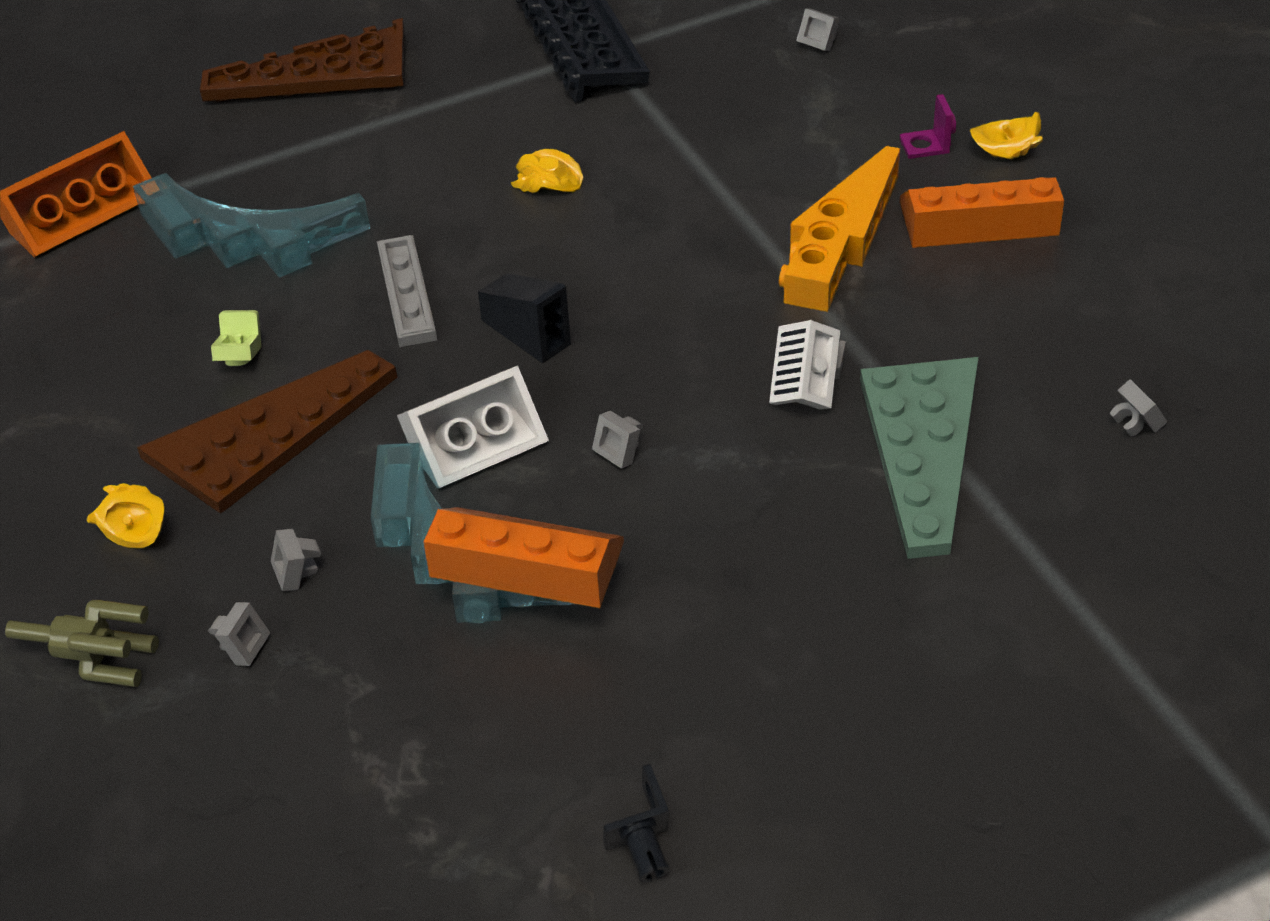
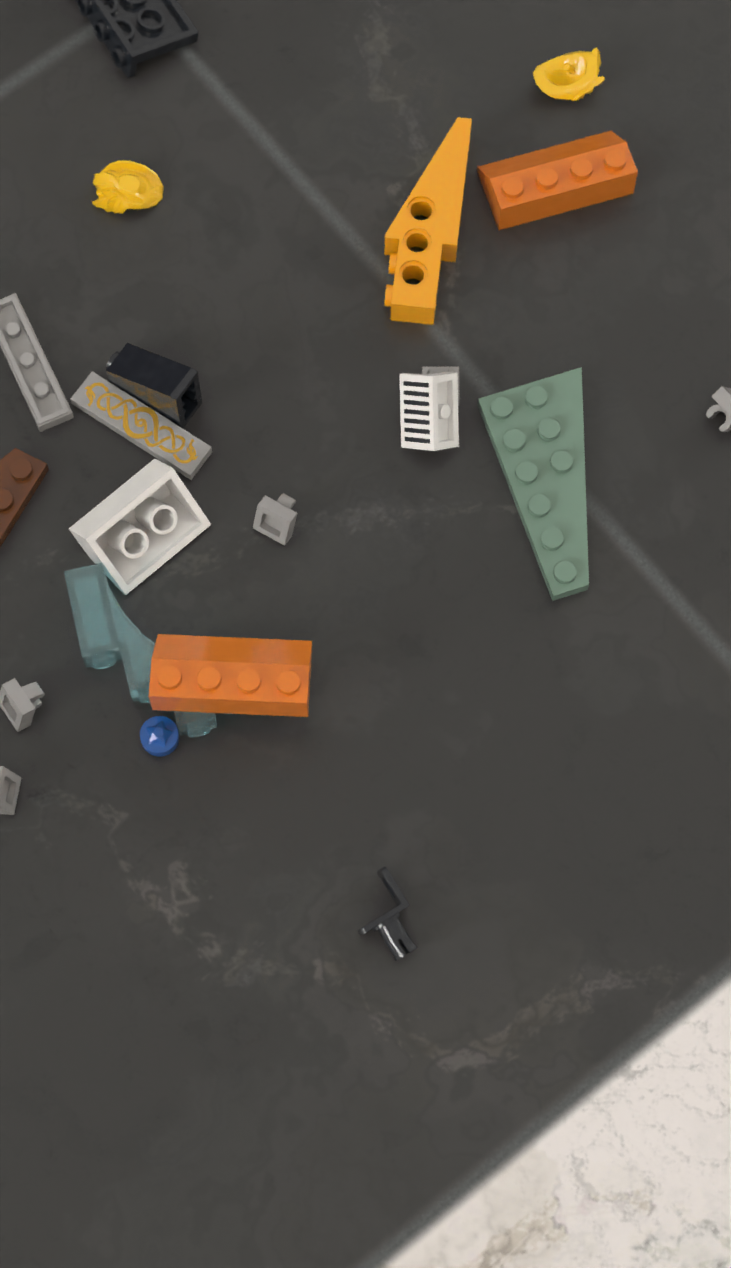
camera: 15 degrees left, 25 degrees up
(433, 615) = (159, 736): none -> blue tile
(502, 349) = (141, 425): none -> light grey tile
(938, 137) = (502, 77): magenta bracket -> none

